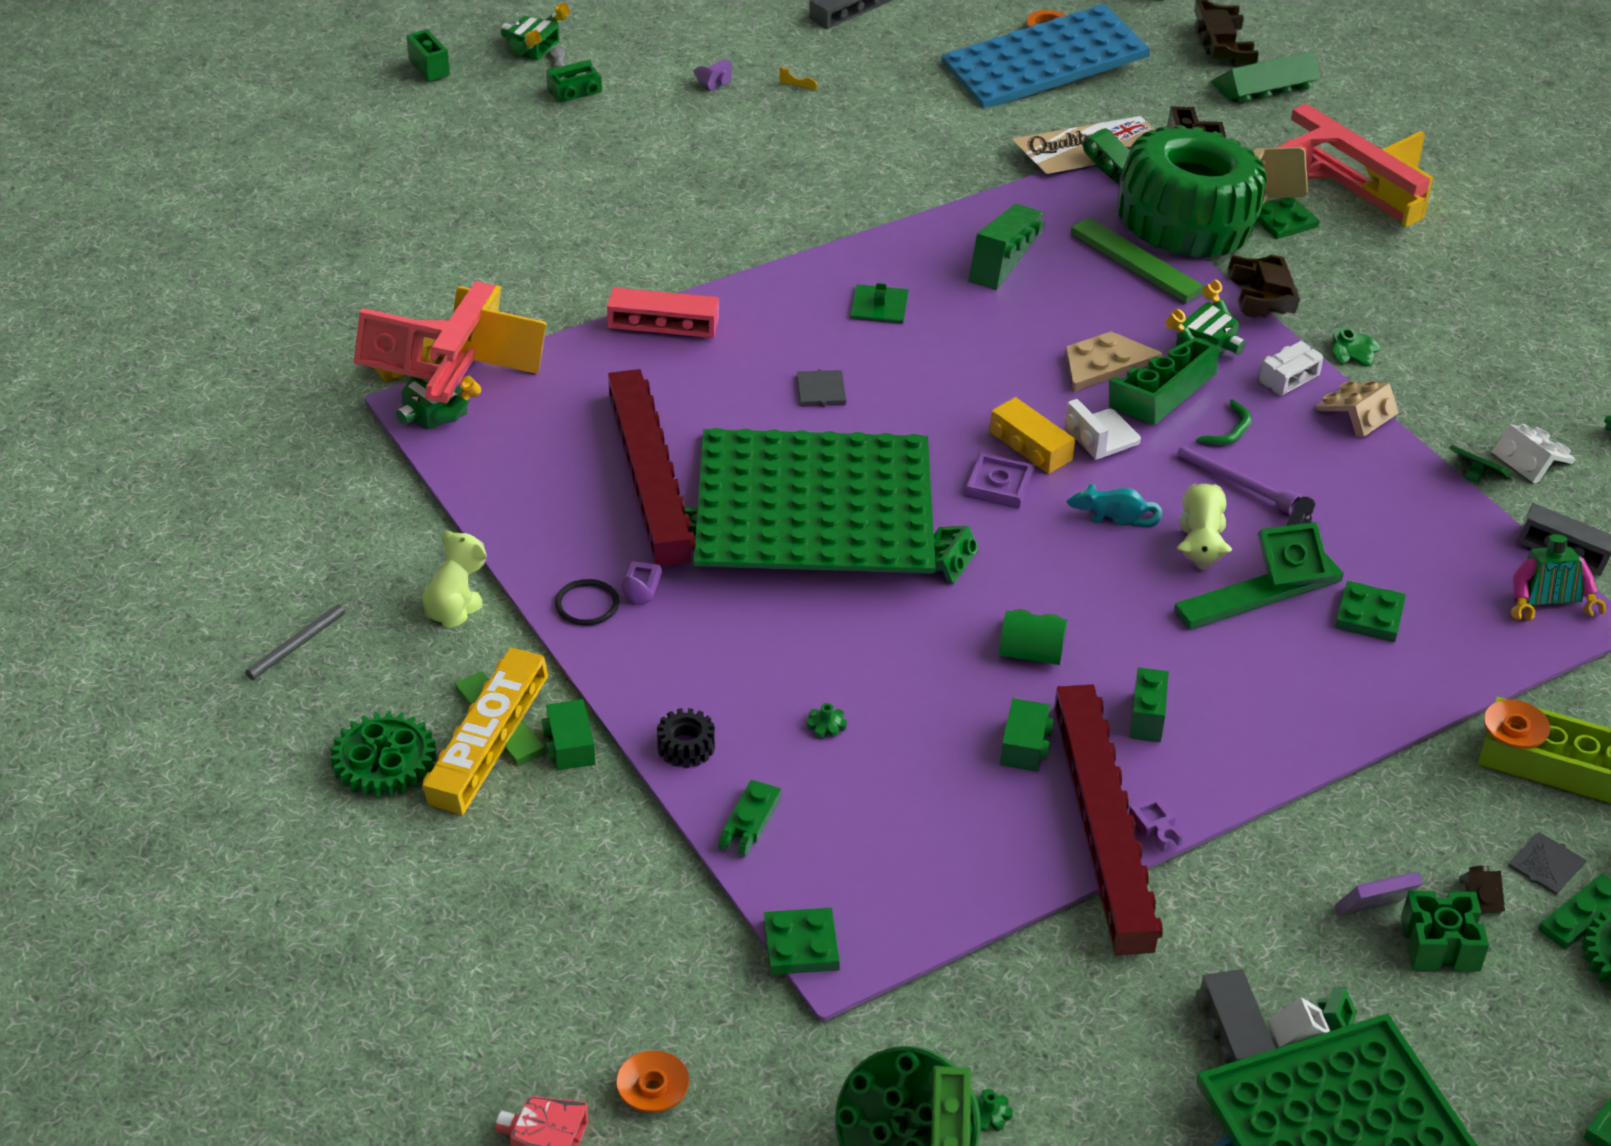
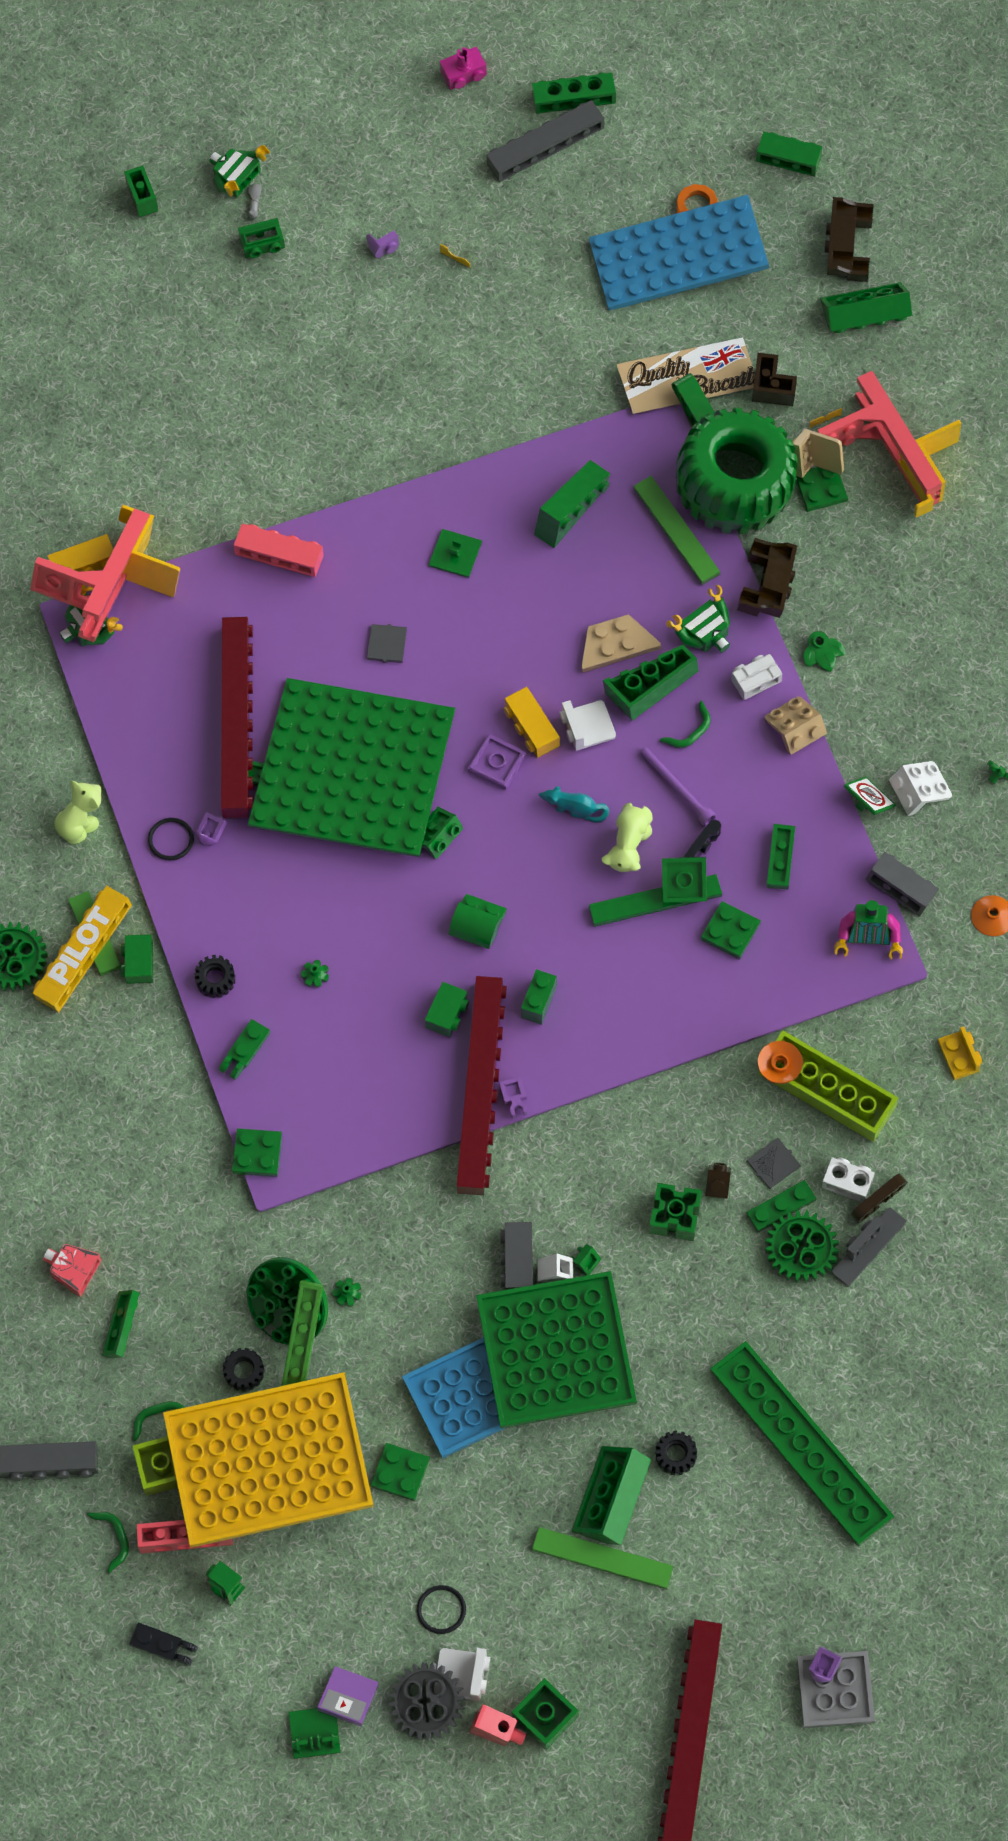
camera: 15 degrees right, 25 degrees up
(650, 1069) = (138, 1232): orange dish -> none
(1378, 893) = (641, 1178): tile -> none
(1401, 529) = (781, 856): none -> green plate

